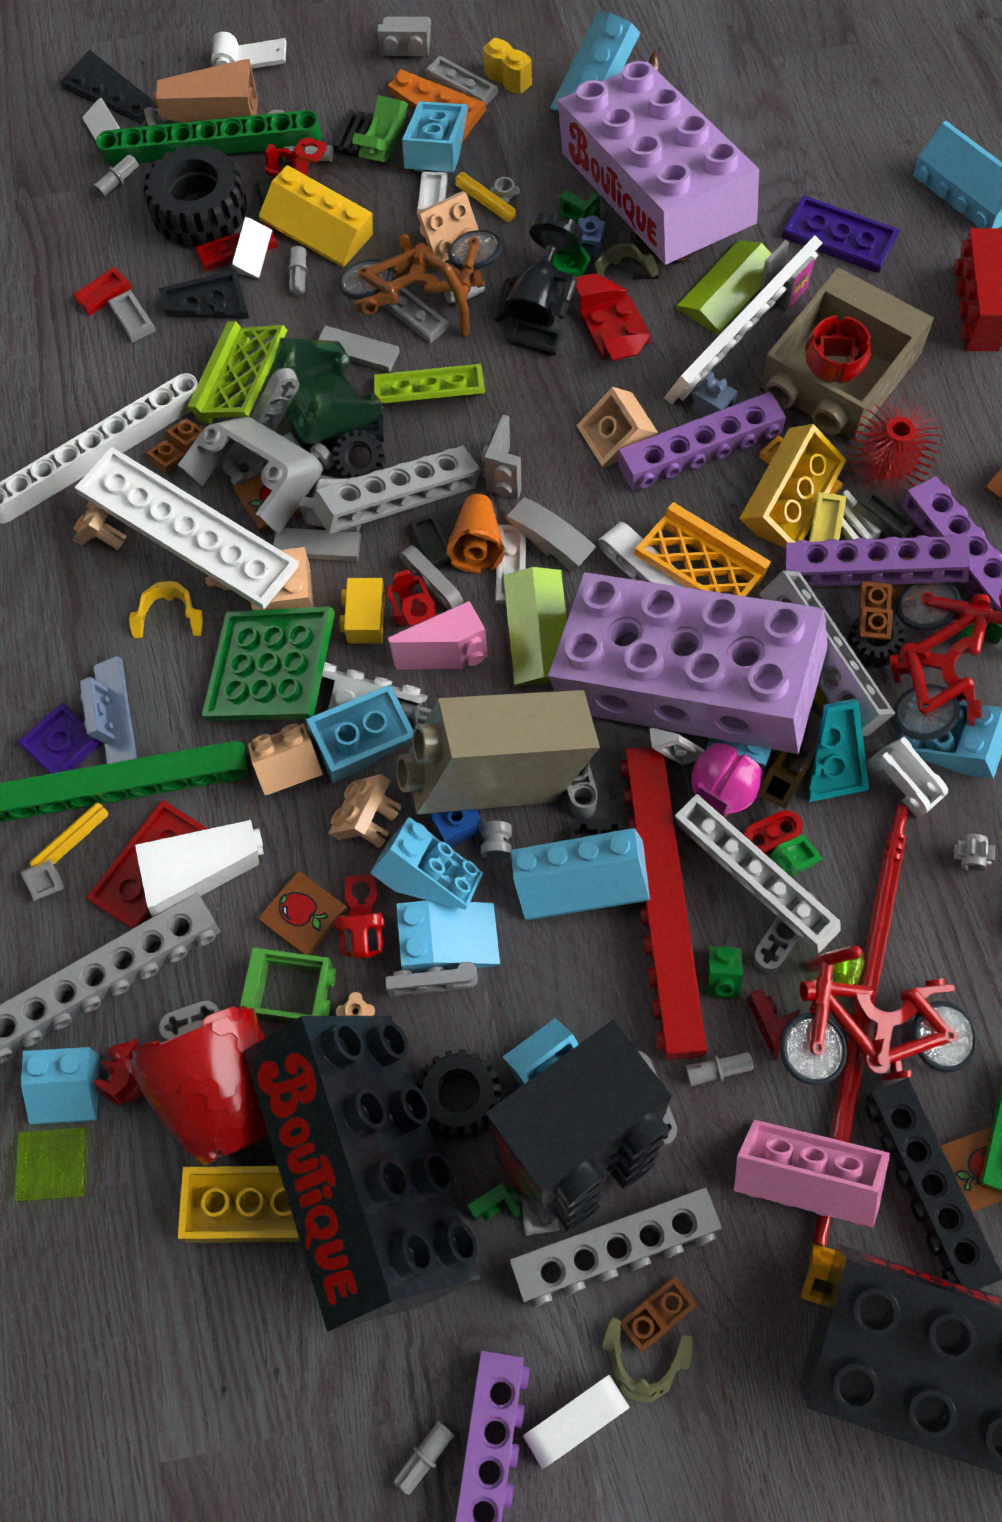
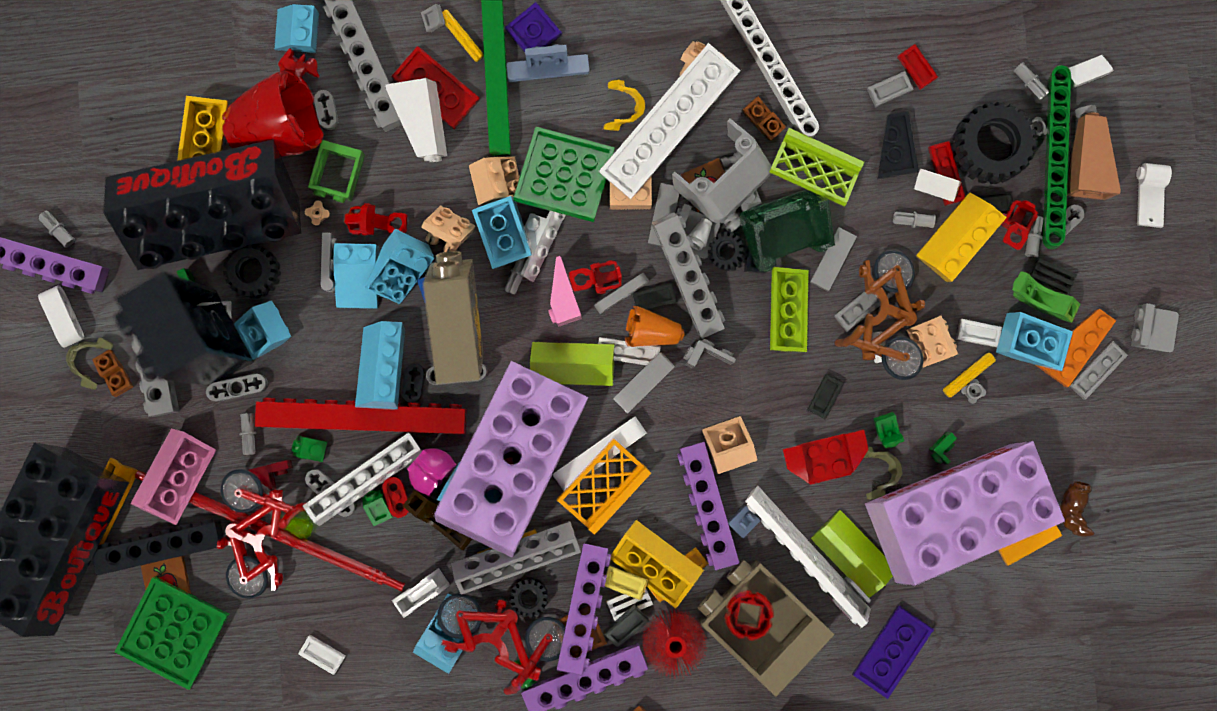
camera: 90 degrees right, 20 degrees up
(51, 1164) = (251, 22): clear neon green tile -> none
(96, 79) = (1134, 73): black wing -> none
(281, 386) = (780, 193): light grey beam -> none
(302, 913) = (387, 184): dark orange tile -> none
(363, 611) = (599, 243): yellow brick -> none
(496, 839) = (416, 315): light grey wheel -> none
(507, 66) = (1105, 407): yellow brick -> none
(535, 292) = (860, 403): black piece -> none
(593, 234) = (906, 451): medium blue brick -> none
(600, 53) = (1079, 479): medium azure slope -> none
(674, 746) = (460, 441): white slope -> none
(839, 753) = (439, 550): teal wing -> none
(875, 610) = (542, 599): dark orange slope -> none
(974, 852) = (361, 626): light grey gear -> none

